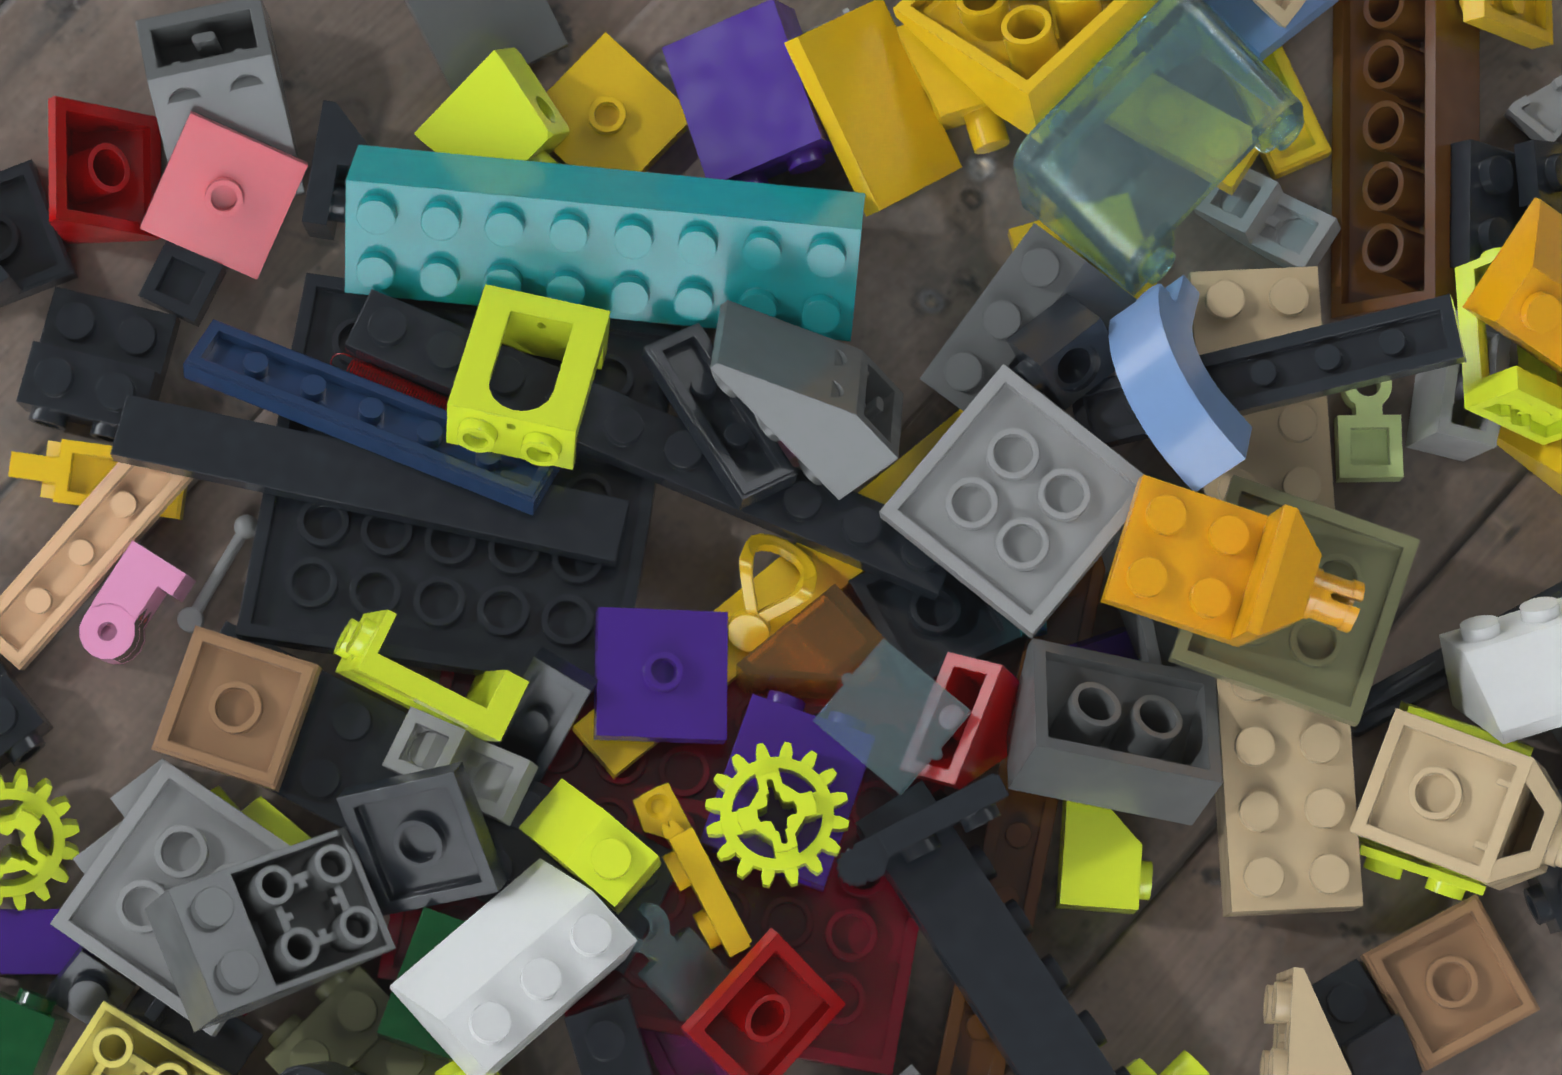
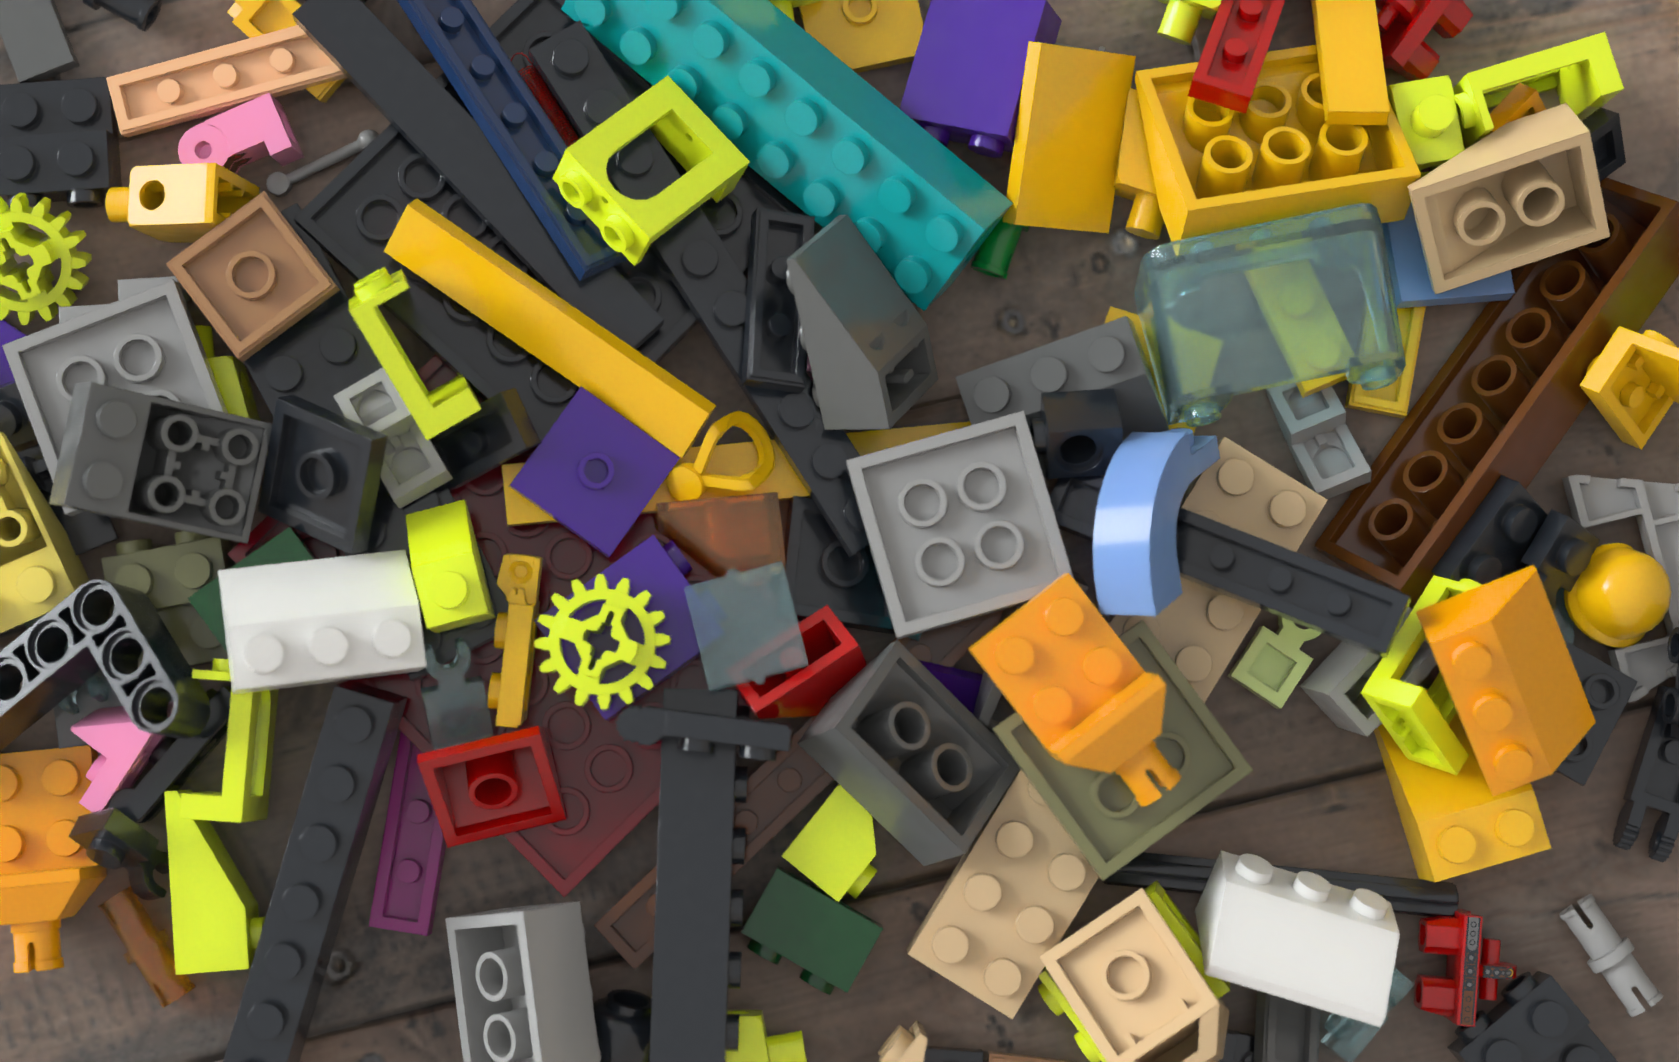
camera: 30 degrees right, 5 degrees up
(117, 691) = (178, 200): none -> yellow torso
(532, 575) = (549, 327): none -> yellow tile
(876, 247) = (998, 250): none -> green pin
(1131, 954) = (811, 931): none -> dark green brick

